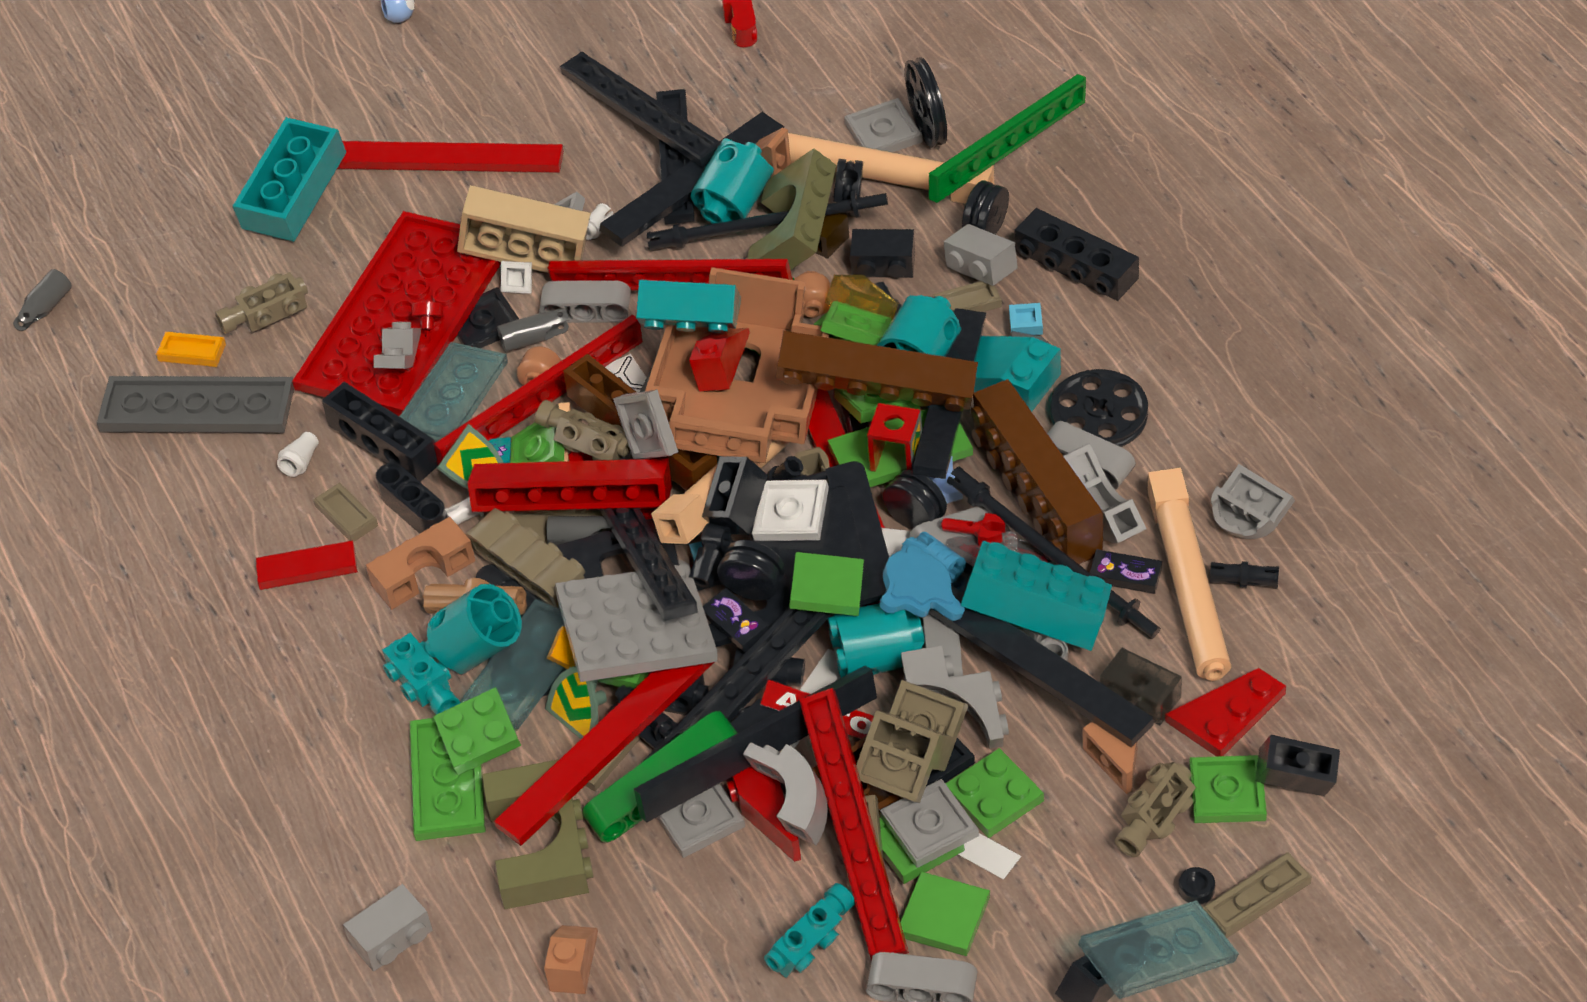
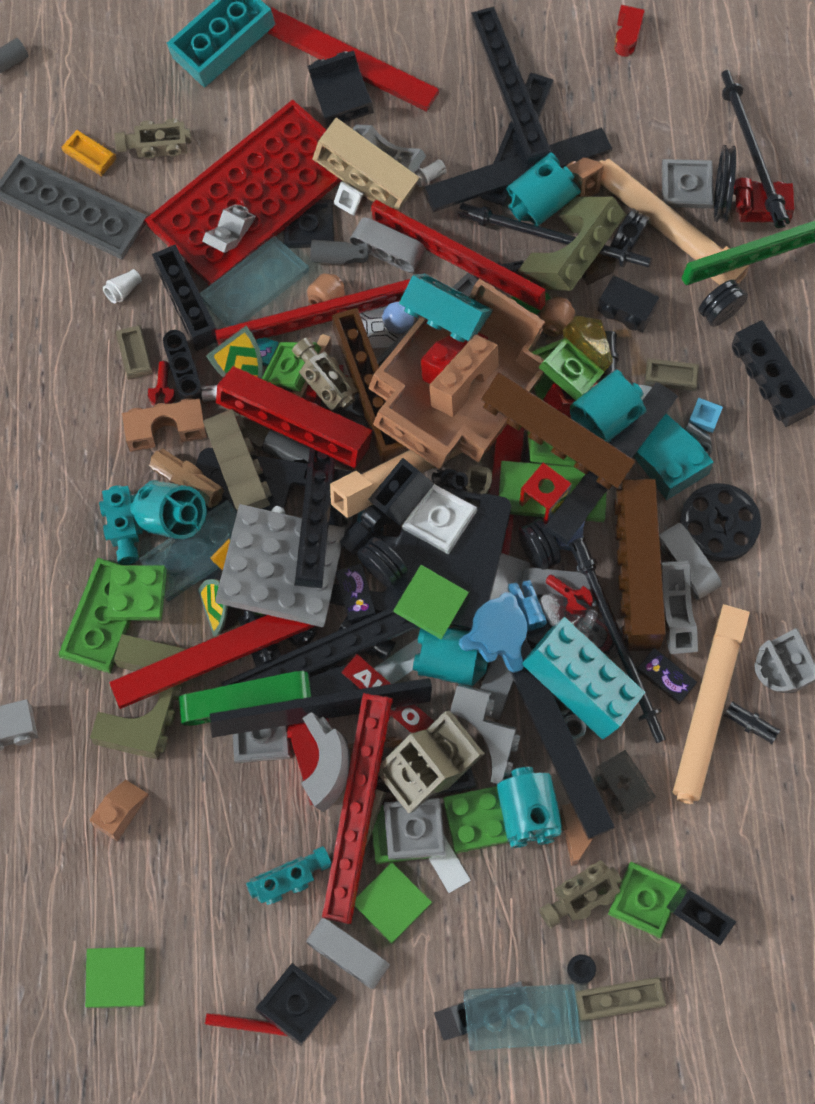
camera: 20 degrees right, 20 degrees up
(306, 565) = (86, 385): red tile -> none
(396, 531) = (161, 386): none -> red bar
(427, 312) = (264, 206): red tile -> none
(445, 177) = (340, 88): none -> black panel
(634, 360) = (396, 319): none -> light blue piece
(645, 425) = (364, 400): light grey tile -> none
(747, 347) = (452, 385): none -> nougat arch
(976, 110) = (751, 200): none -> red hinge
(980, 254) = (699, 342): light grey brick -> none
(988, 99) = (774, 202): none -> black bar
(1048, 746) = (529, 808): none -> teal cylinder
(1227, 712) = (679, 834): red wing -> none

